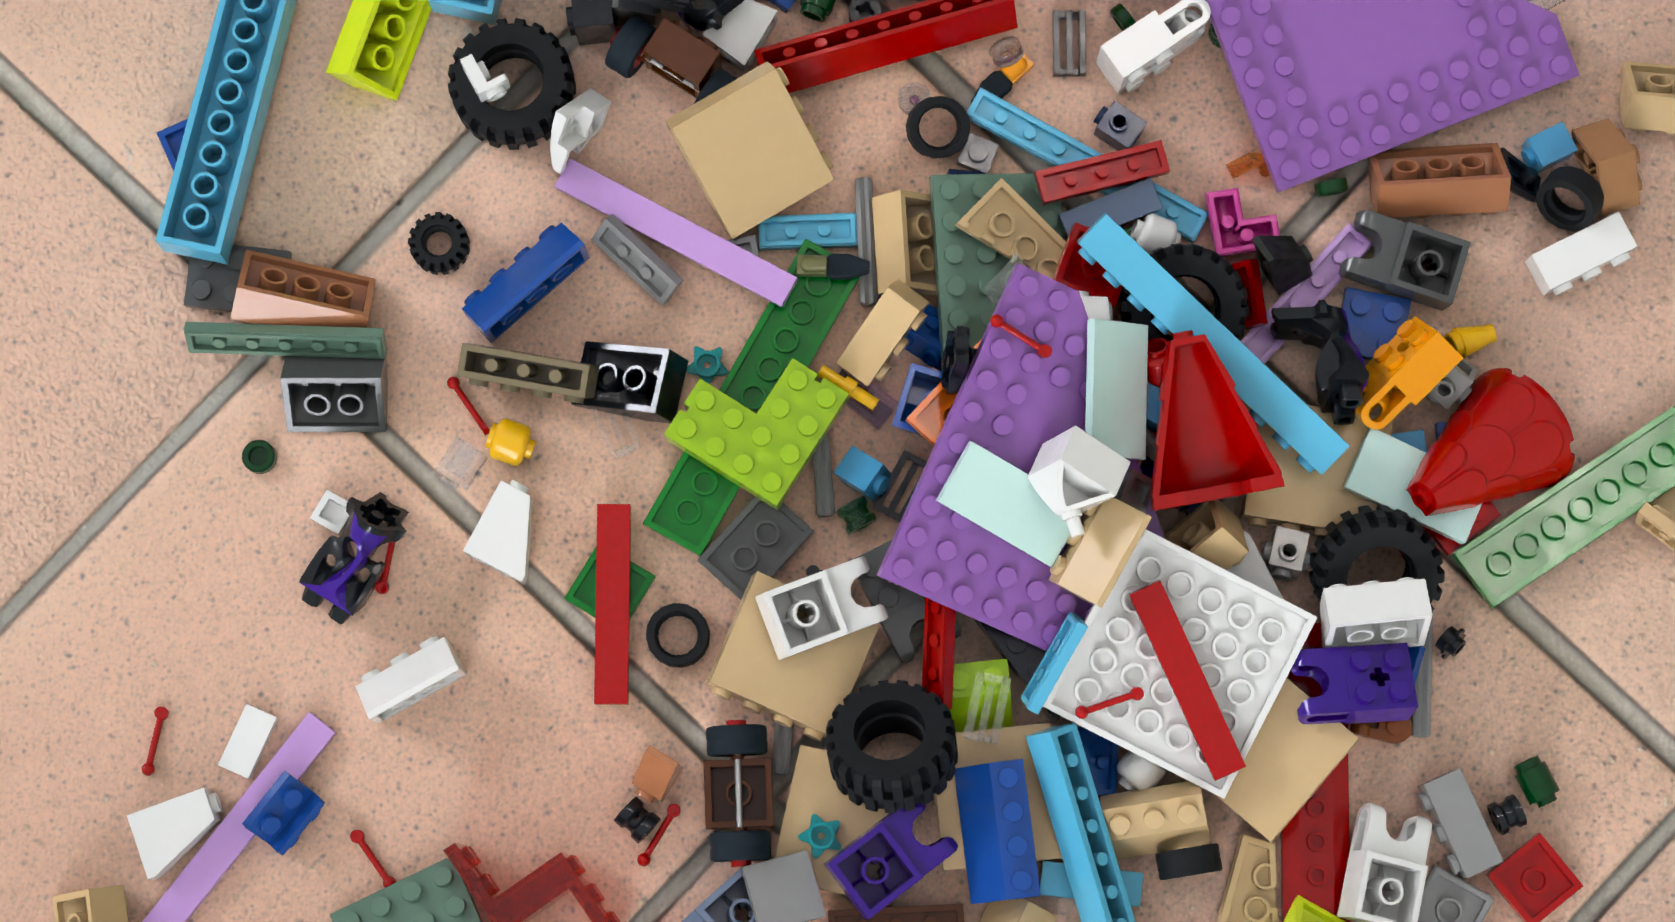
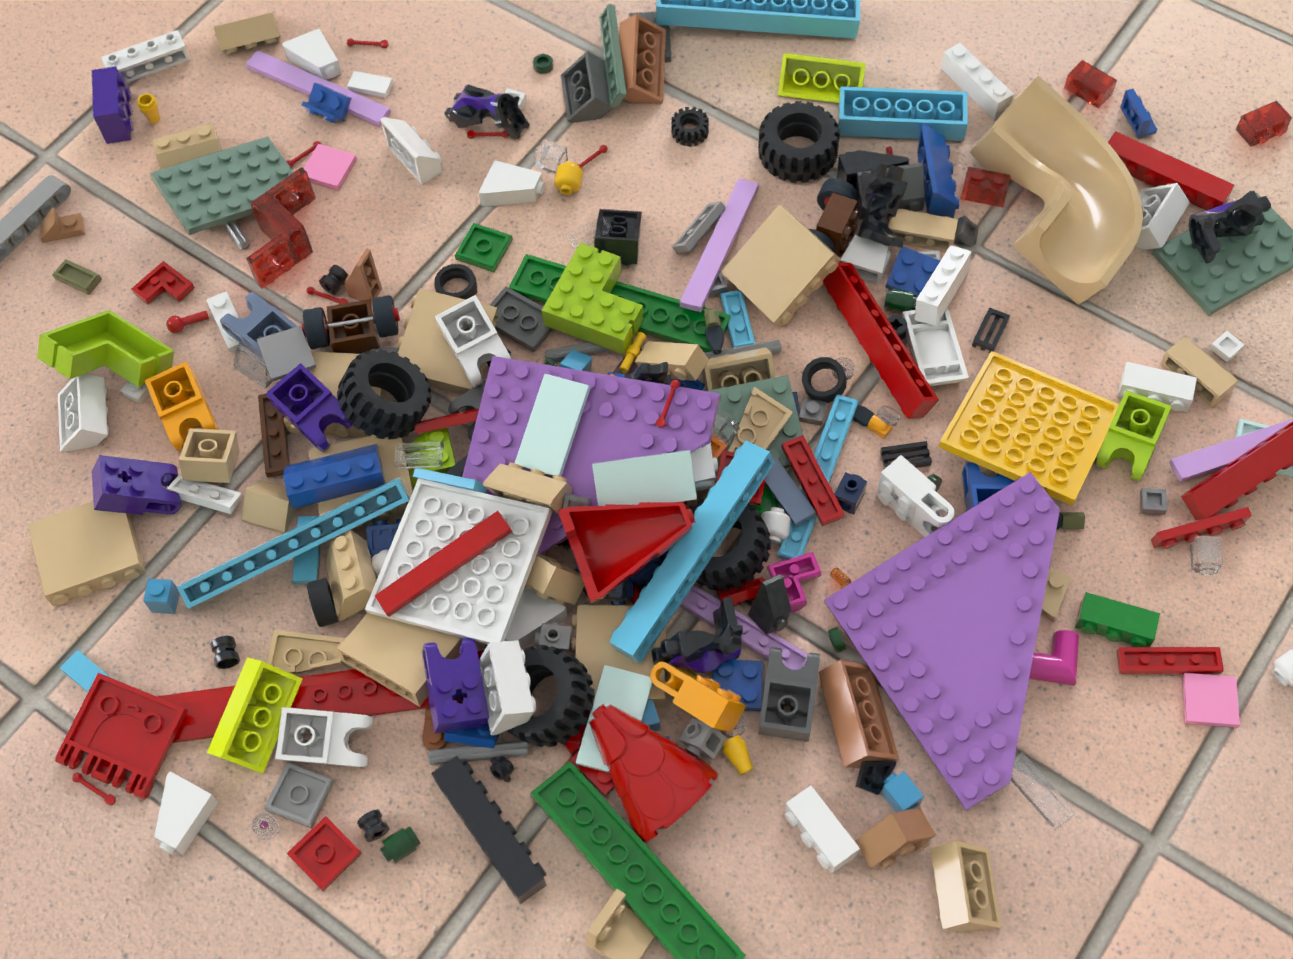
camera: 85 degrees right, 20 degrees down
(408, 819) = (329, 166): none -> bright pink tile
(478, 76) = (791, 110): white bracket -> none
(526, 281) = (671, 170): blue slope -> none
(528, 370) = (613, 176): dark tan brick -> none
(576, 125) = (779, 178): white slope -> none
(612, 604) = (470, 245): red tile -> none
(701, 357) = (637, 273): teal plate -> none
(819, 826) = (324, 369): teal plate -> none
(1076, 475) = (571, 452): white piece -> none
(1136, 693) = (431, 533): red hinge -> none
(1459, 824) = (363, 791): light grey brick -> none
(1530, 666) = (489, 830): none -> black brick
(1579, 183) = (862, 808): black tyre -> none

